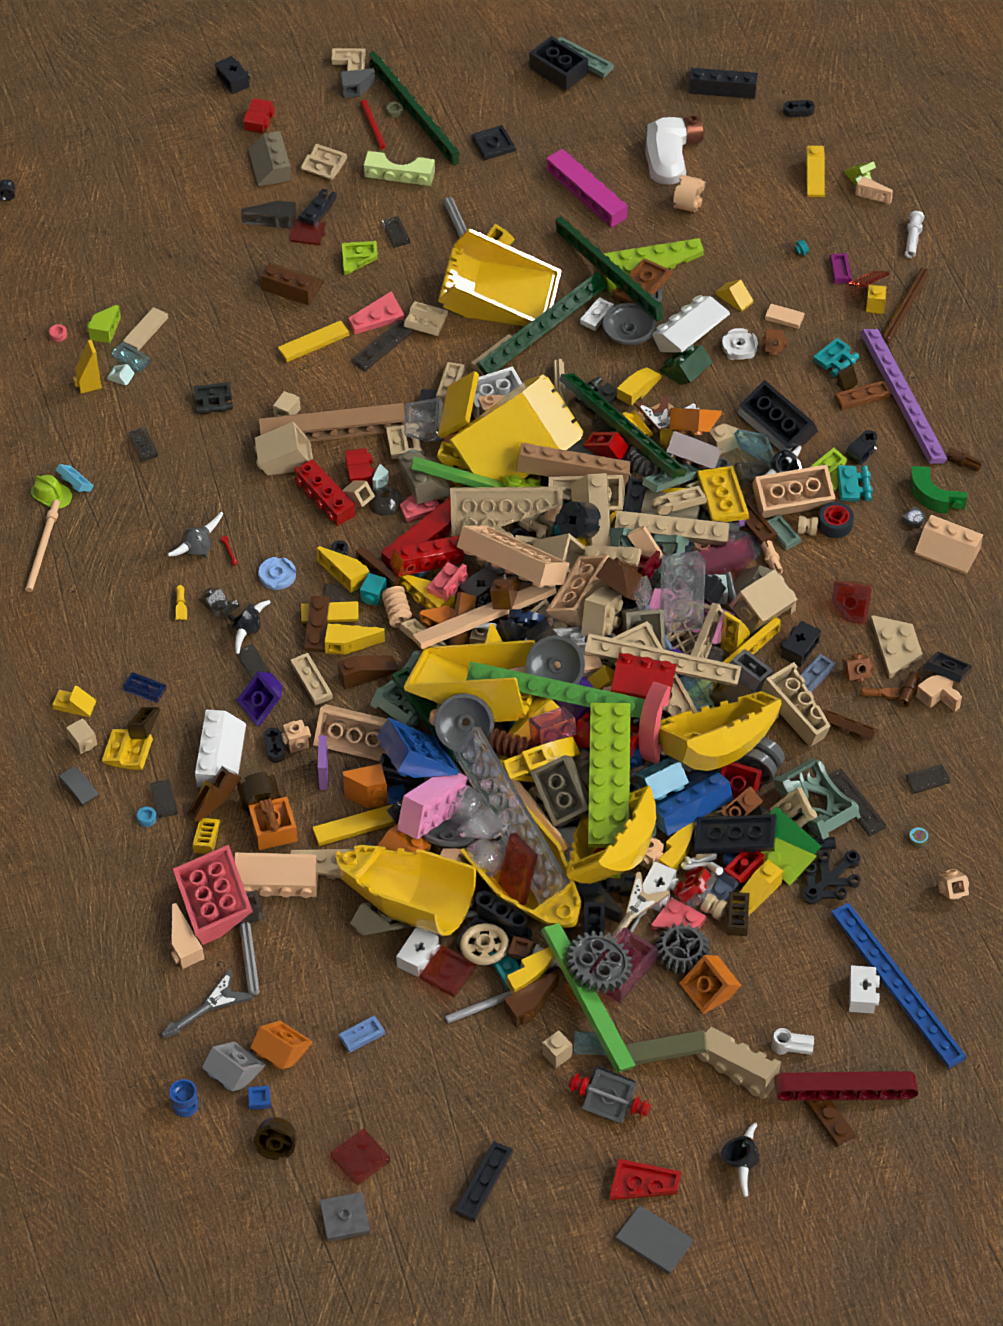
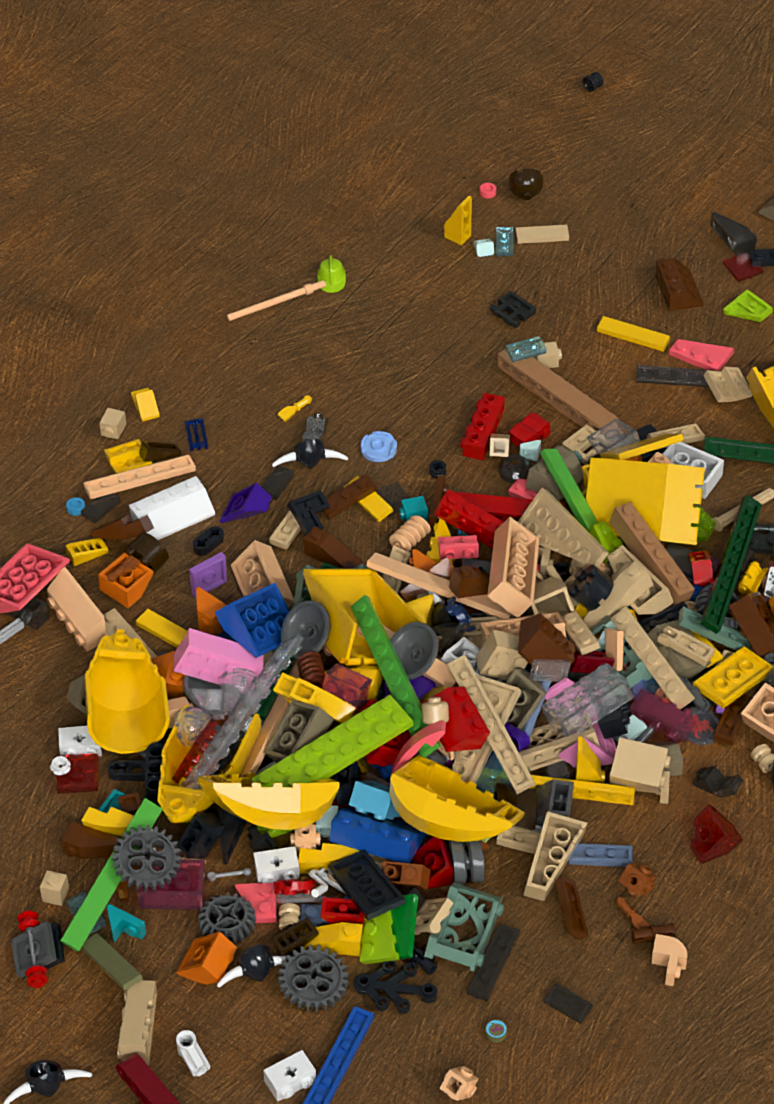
camera: 55 degrees right, 5 degrees down
(71, 475) = (354, 278): medium azure plate -> none
(79, 785) = (68, 450): dark grey slope -> none
(85, 303) = (526, 183): none -> dark brown cylinder
(104, 324) = (520, 208): lime slope -> none
(143, 444) = (426, 297): clear smoke plate -> none
(158, 752) = (139, 476): none -> light nougat tile
(196, 539) = (359, 378): dark grey helmet -> none
(224, 539) = (382, 398): red hinge -> none
(278, 412) = (525, 349): none -> clear light blue plate
(282, 449) = (500, 377): tan slope -> none
(296, 736) = (225, 543): light nougat brick -> none
(312, 658) = (306, 508): none -> black plate
(343, 568) = (418, 480): yellow slope -> none
(348, 639) = (349, 523): yellow slope -> none
(437, 971) = (62, 762): none -> white plate
(476, 1007) = (54, 811): light grey bar -> none
(484, 959) = (118, 779): tan plate -> none
(627, 1021) = (123, 921): none -> teal slope
(637, 683) = (435, 711): none -> tan head
(639, 903) = (243, 859): piece -> none
(744, 954) = (254, 964): none -> black helmet
(771, 557) = (704, 753): light nougat pin -> none
(786, 535) = (743, 746): sand green tile -> none
(798, 935) = (310, 995): none -> dark grey gear
(800, 643) = (628, 825): black brick -> none
(801, 570) = (714, 782): none -> clear smoke slope
(896, 643) = (698, 898): tan wing -> none
(948, 666) = (703, 948): black tile -> none

